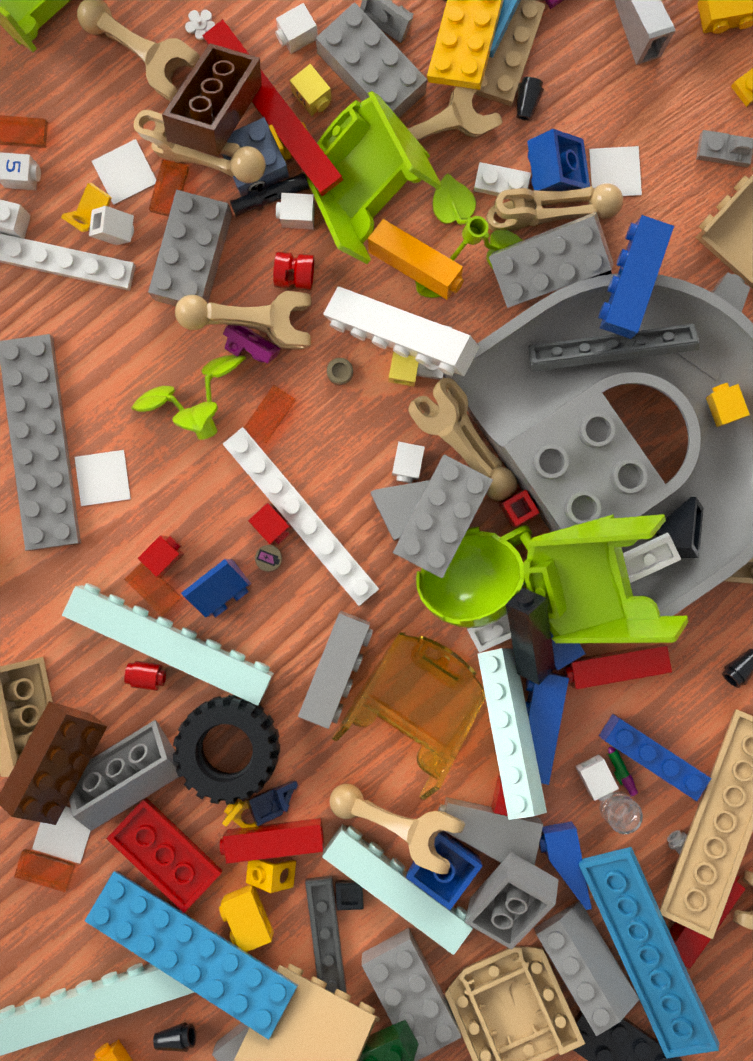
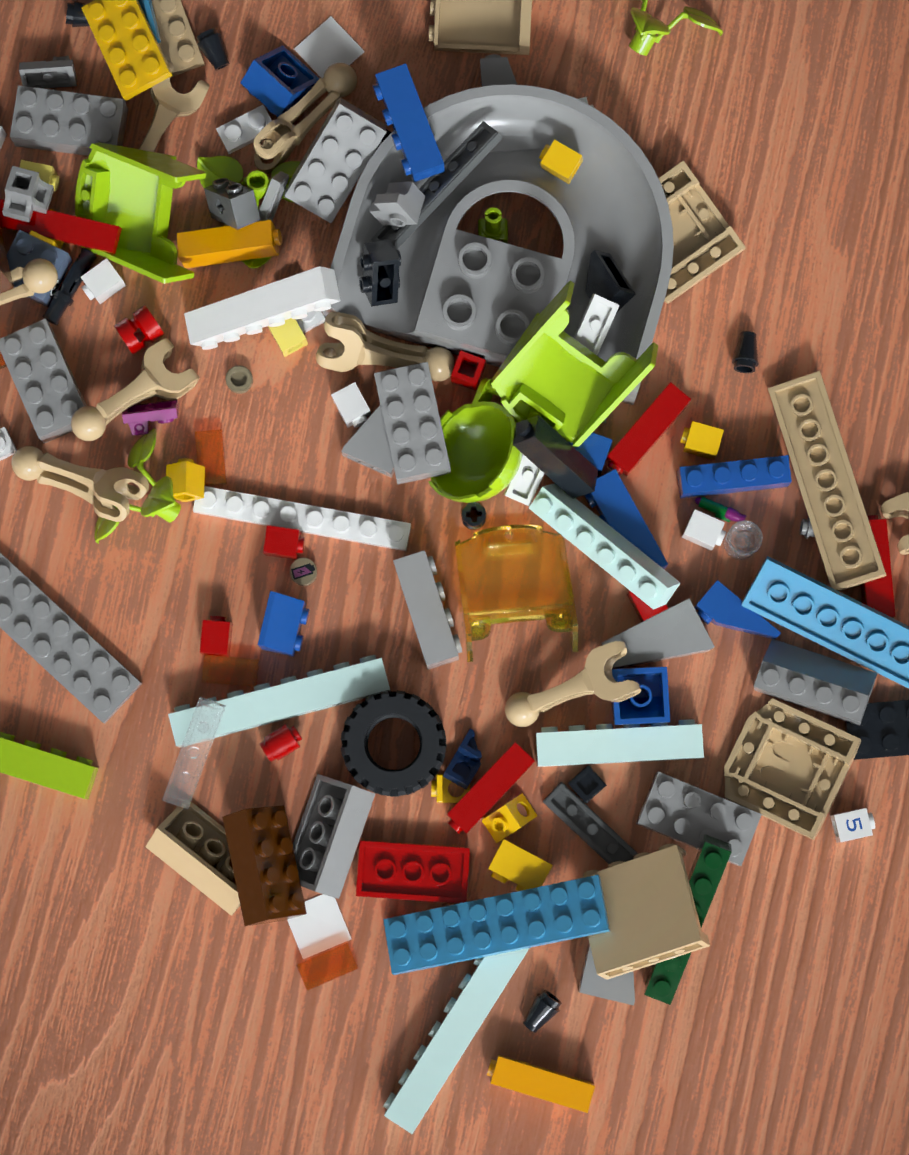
camera: 35 degrees left, 5 degrees down
(70, 632) = (193, 752): none -> clear tile
(102, 478) = (117, 617): white sticker -> none
(162, 365) = (94, 485): none -> tan piece
(234, 416) = (187, 479): none -> yellow brick
(289, 91) = (26, 194): none -> light grey brick
(432, 631) = (467, 520): none -> black bush
(443, 229) = (232, 203): none -> dark grey brick
(479, 250) = (273, 196): none -> light grey tile
(512, 901) = (712, 675): light grey brick -> none
(514, 378) = (380, 272): none -> black brick
(572, 336) = (399, 205): none -> light grey brick
(631, 411) = (493, 225): none -> lime piece
(653, 708) = (701, 440): none -> yellow brick

